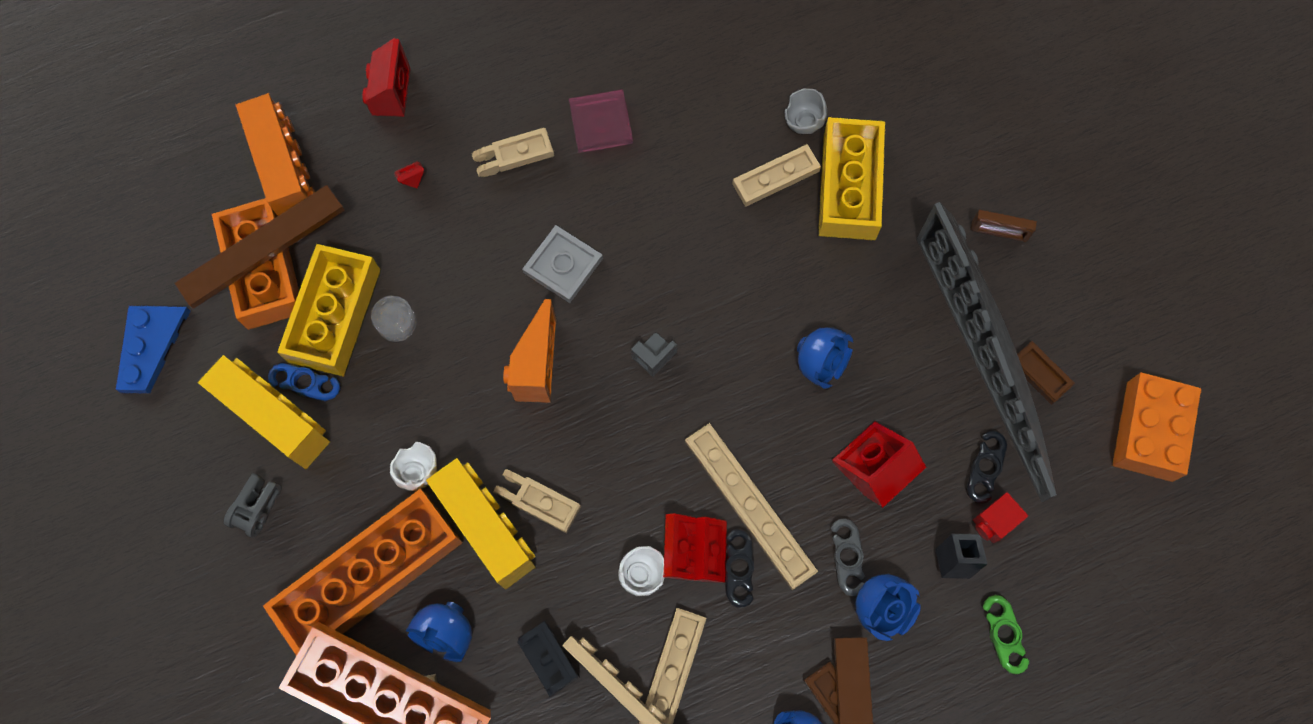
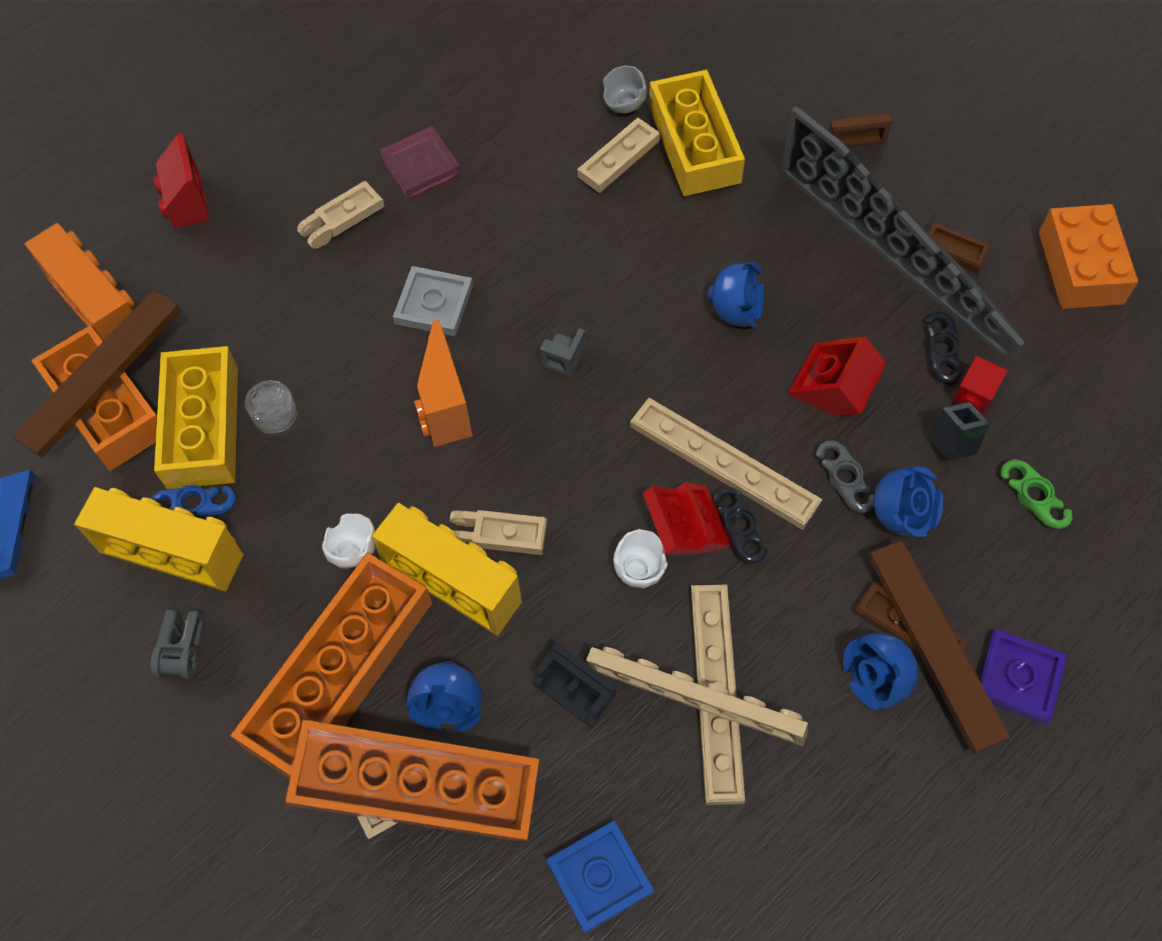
camera: 20 degrees left, 10 degrees down
(410, 174) = (238, 268): red slope -> none

